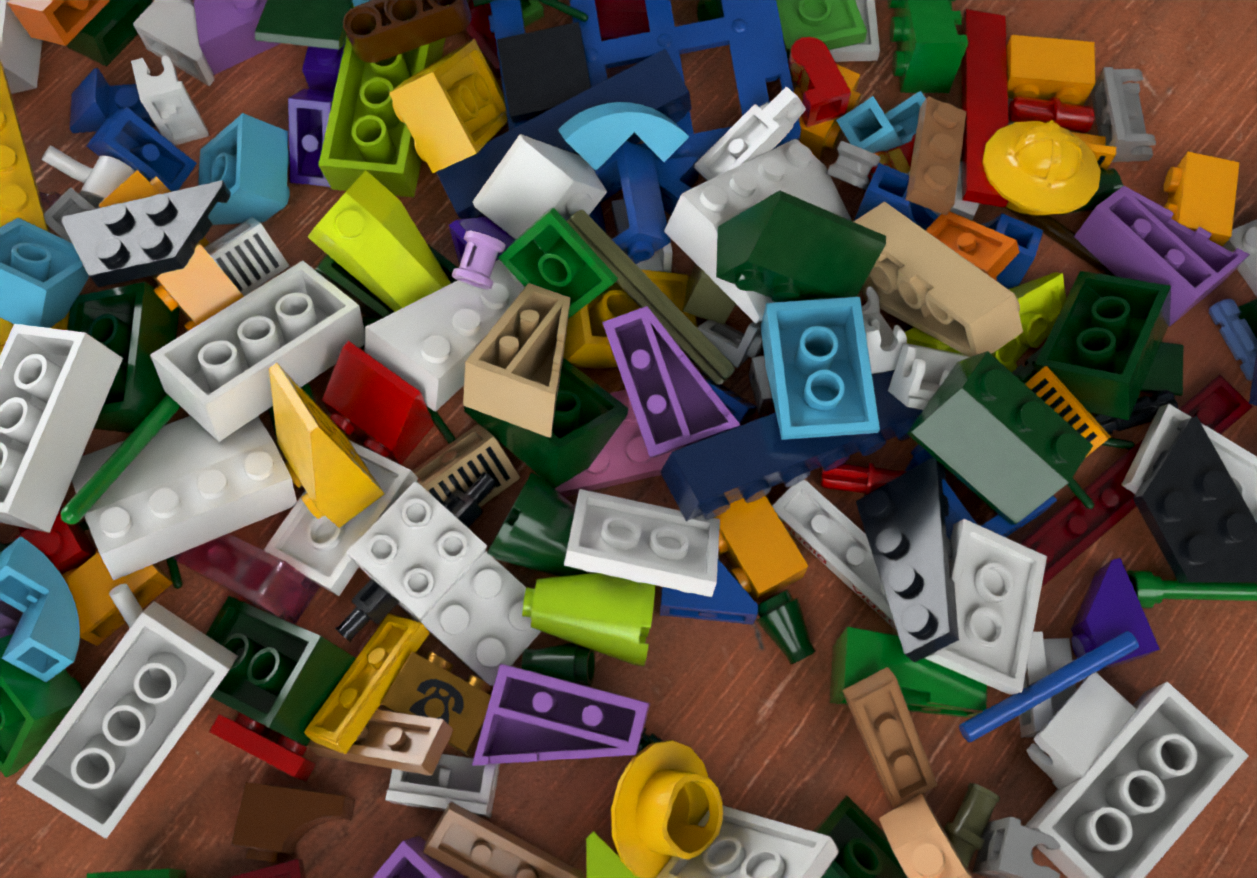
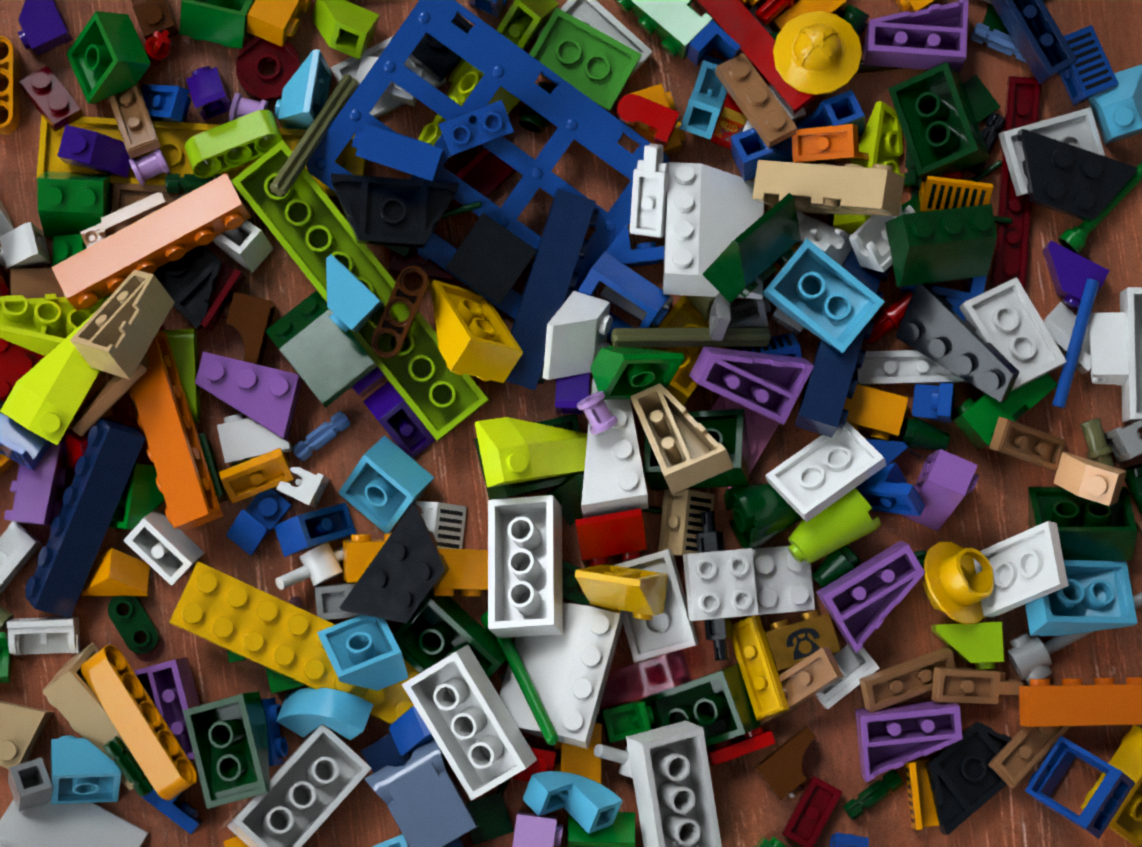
camera: 45 degrees left, 15 degrees up
(126, 43) = (256, 475): none -> light orange panel
(190, 598) = (626, 720): none -> green bracket
(242, 91) = (321, 436): none -> medium blue axle
(605, 127) = (578, 269): medium azure brick -> none
(688, 636) = (891, 493): none -> blue slope
(695, 299) = (719, 318): none -> light grey tile
(752, 684) = (942, 486): none -> medium lavender wedge
(834, 601) = (934, 402): none -> blue slope
(853, 165) = (719, 152): light grey wheel -> none
(942, 73) = (712, 37): none -> blue panel

